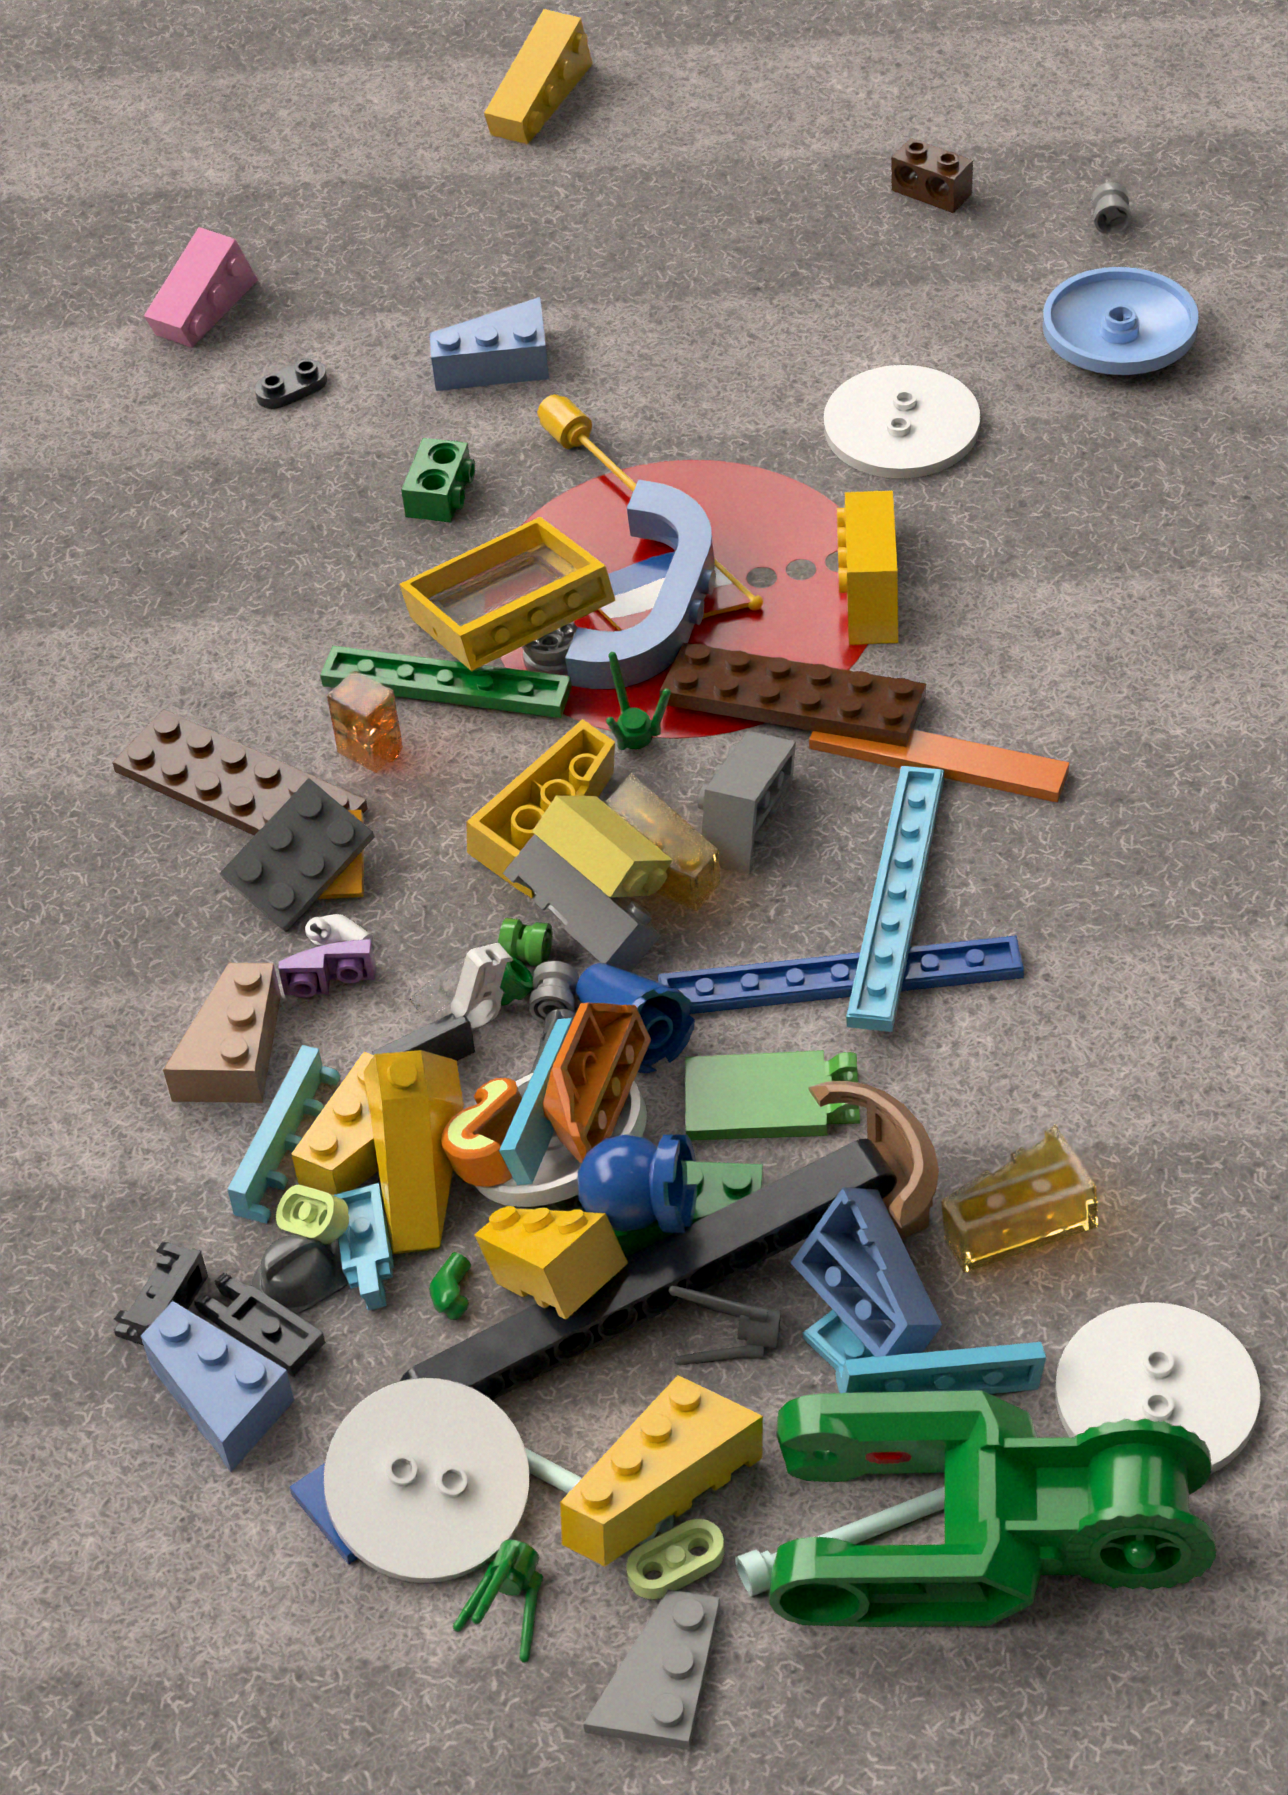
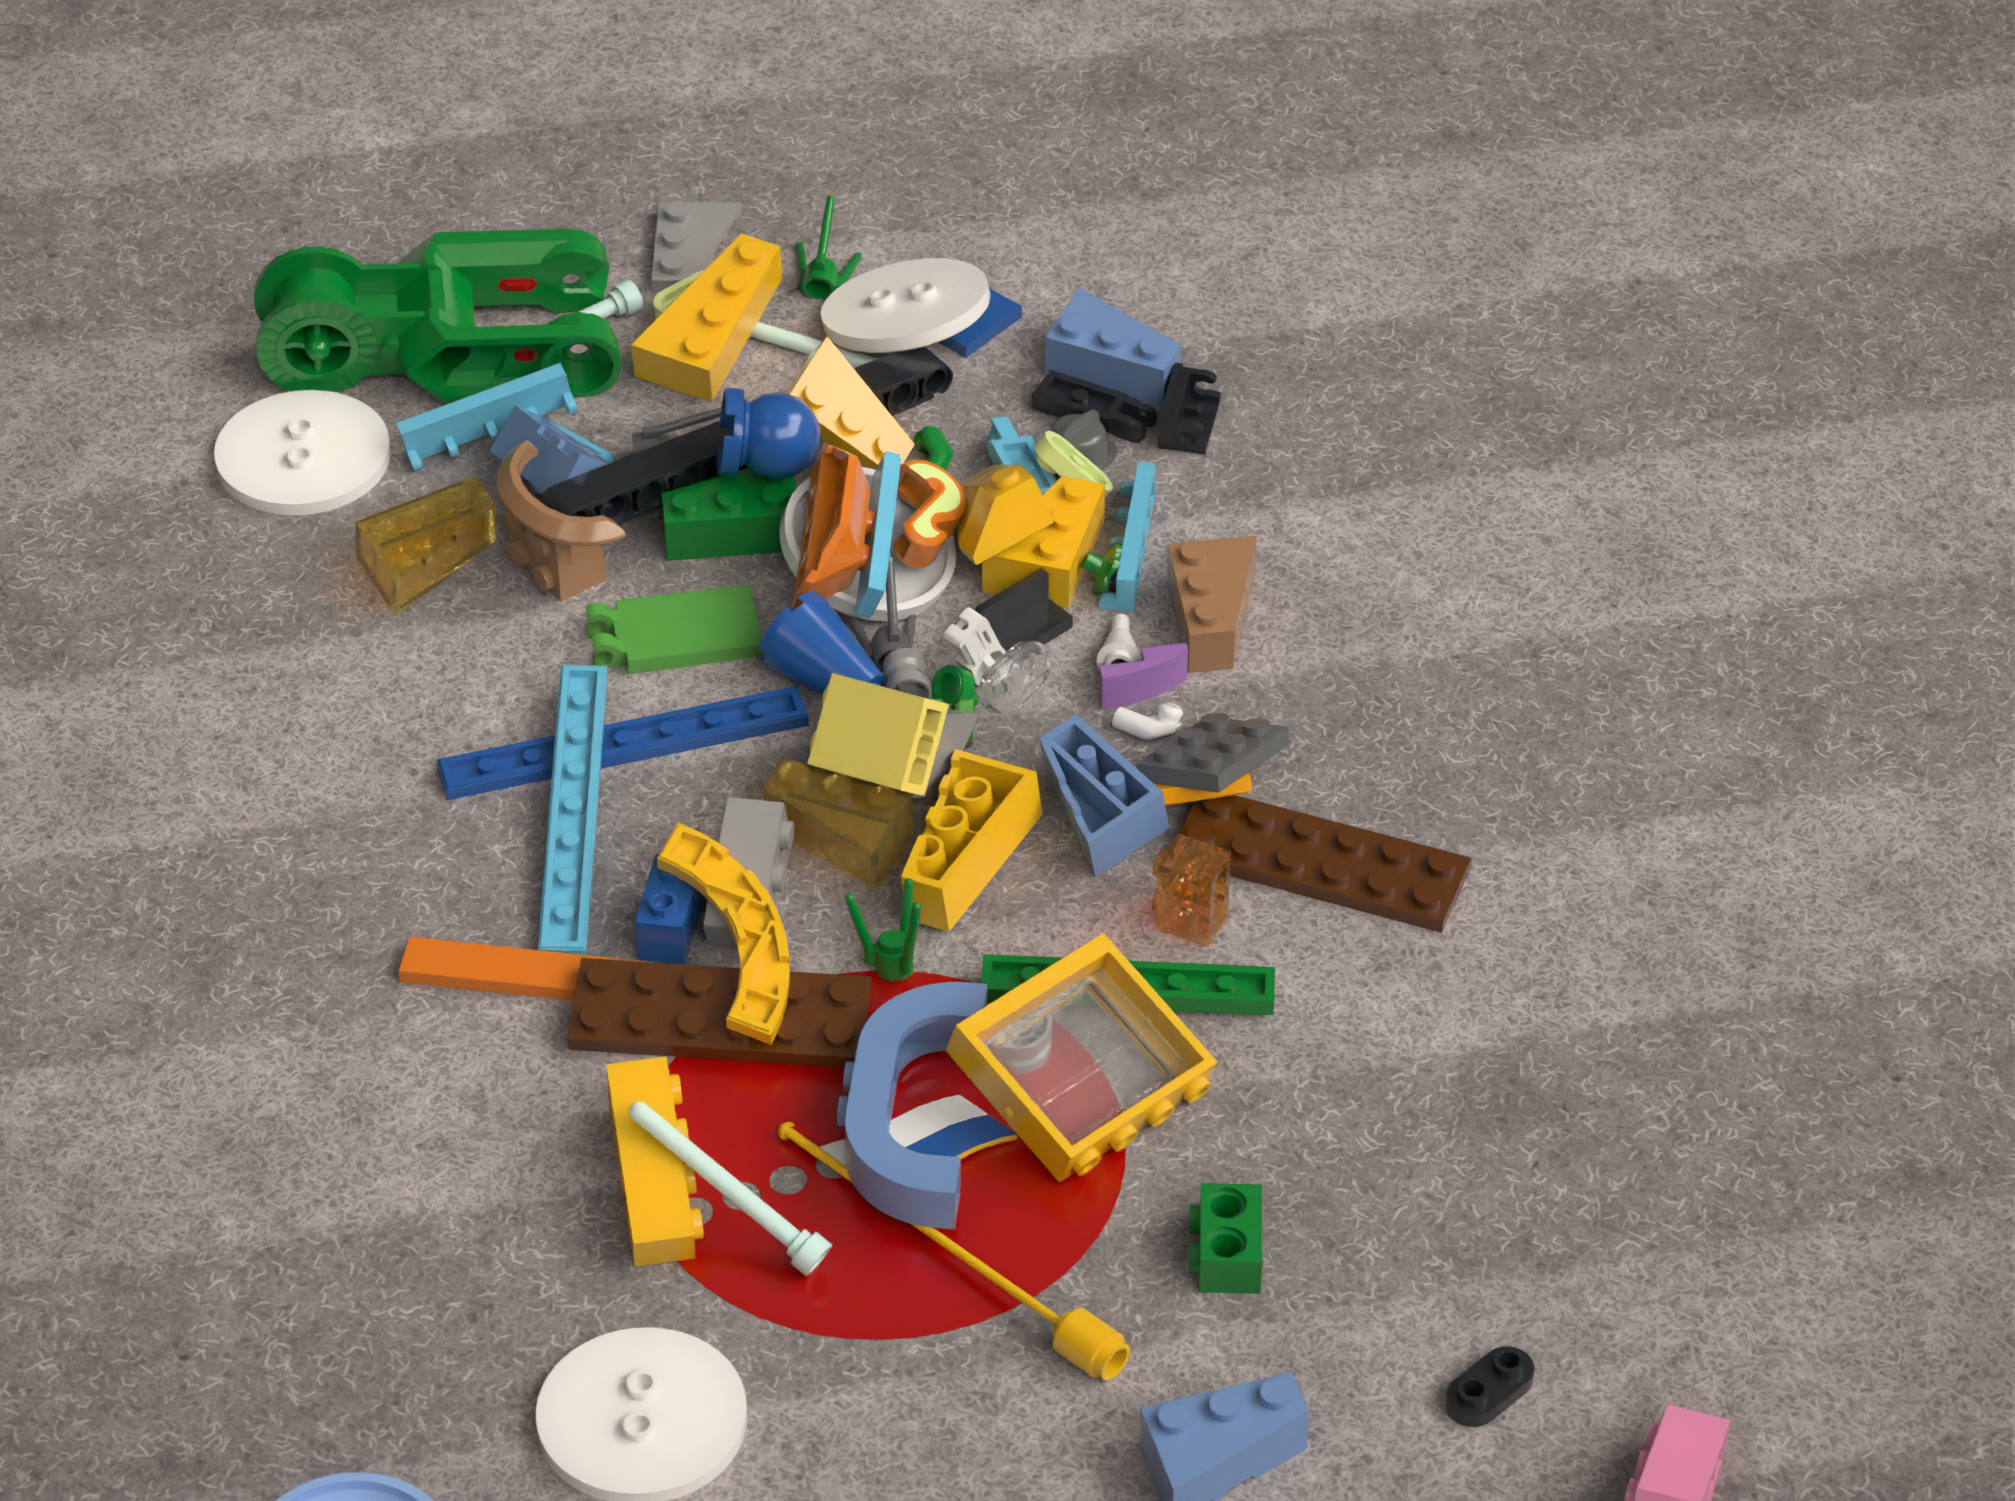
camera: 165 degrees right, 5 degrees down
(317, 1089) = (1102, 567): none -> green plant
(340, 1003) = (1119, 644): none -> white cone
(411, 834) = (1102, 794): none -> medium blue wedge
(756, 722) = (752, 921): none -> yellow tile
(760, 500) = (803, 1247): none -> light aqua piece
(821, 778) = (667, 918): none -> blue brick

